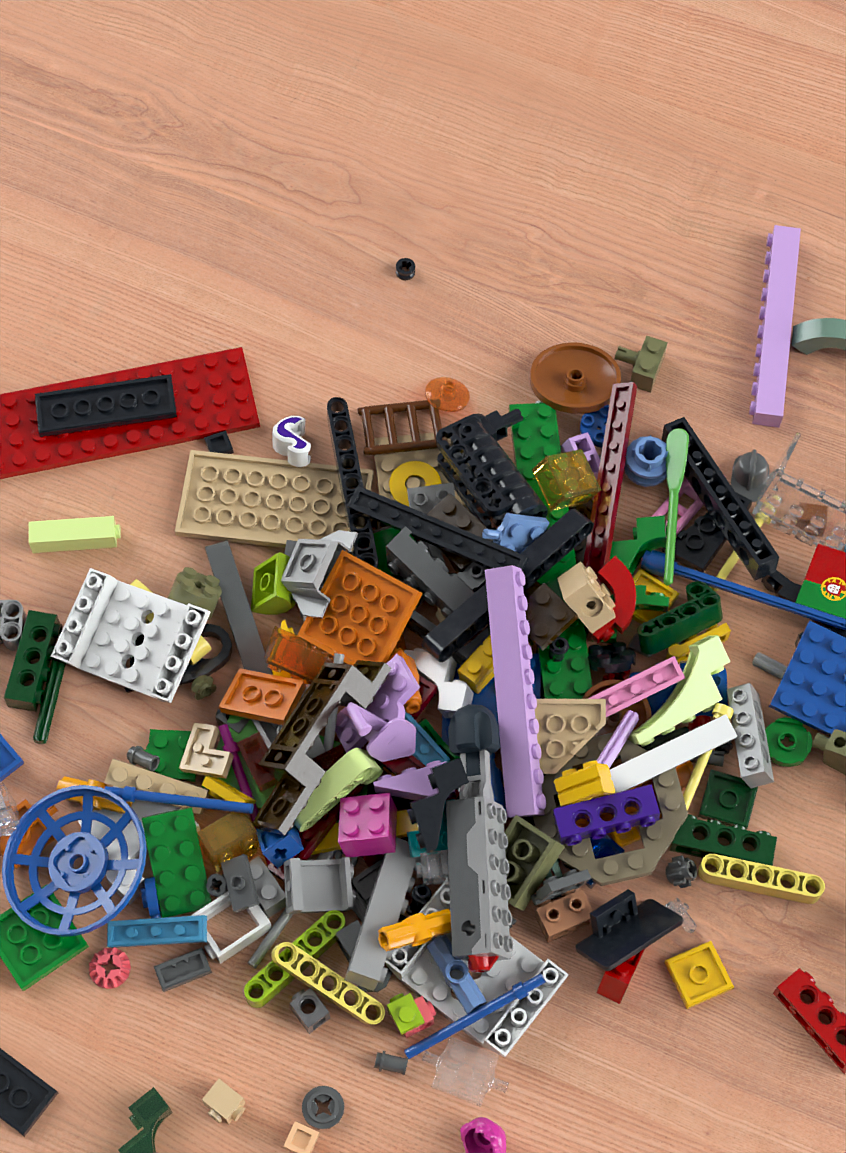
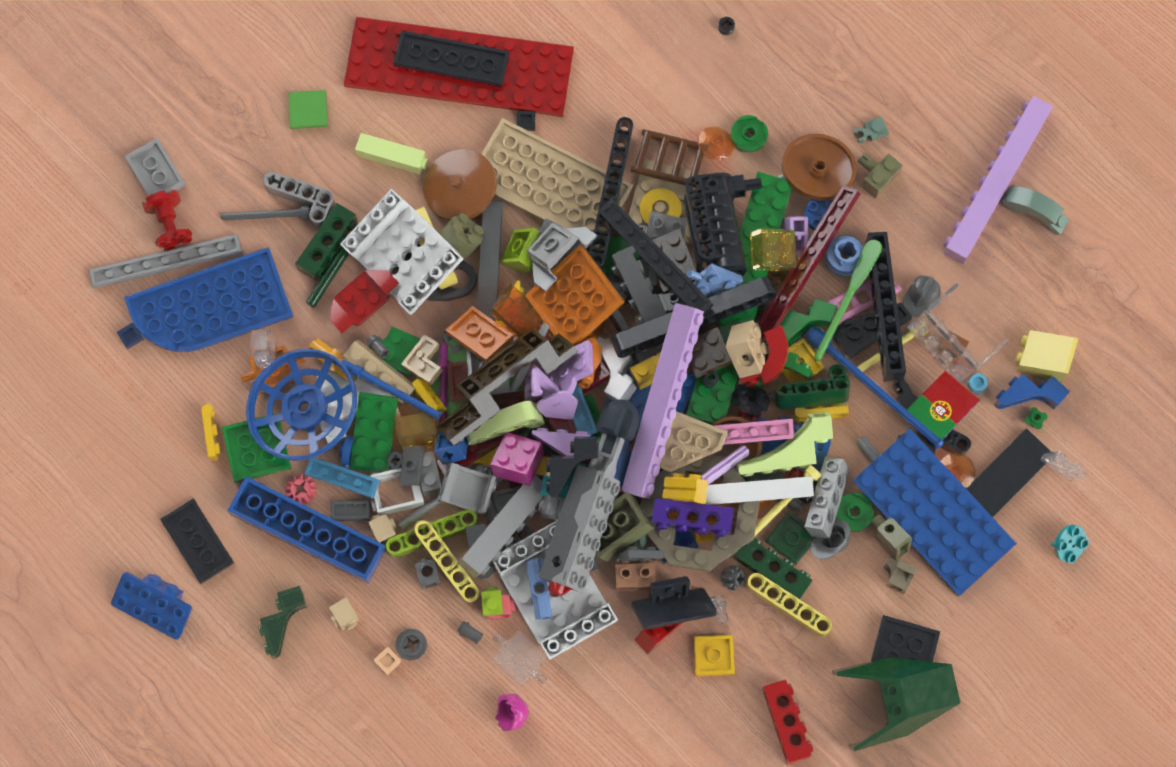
camera: 20 degrees right, 10 degrees up
(101, 709) = (361, 298): none -> red piece
(136, 1013) = (306, 529): none -> blue brick
(168, 537) = (460, 184): none -> dark orange dish
(203, 687) = (442, 308): olive plate -> none
(231, 976) = (382, 528): none -> tan brick
(288, 440) = (577, 139): white animal -> none
(415, 930) = (519, 547): light orange piece -> none
(421, 895) = (536, 523): black pin -> none
(480, 383) = (755, 126): none -> green plate
(518, 991) = (576, 618): blue bar -> none
(615, 321) = (873, 129): none -> sand green plate
(785, 783) = (839, 540): none -> dark grey piece

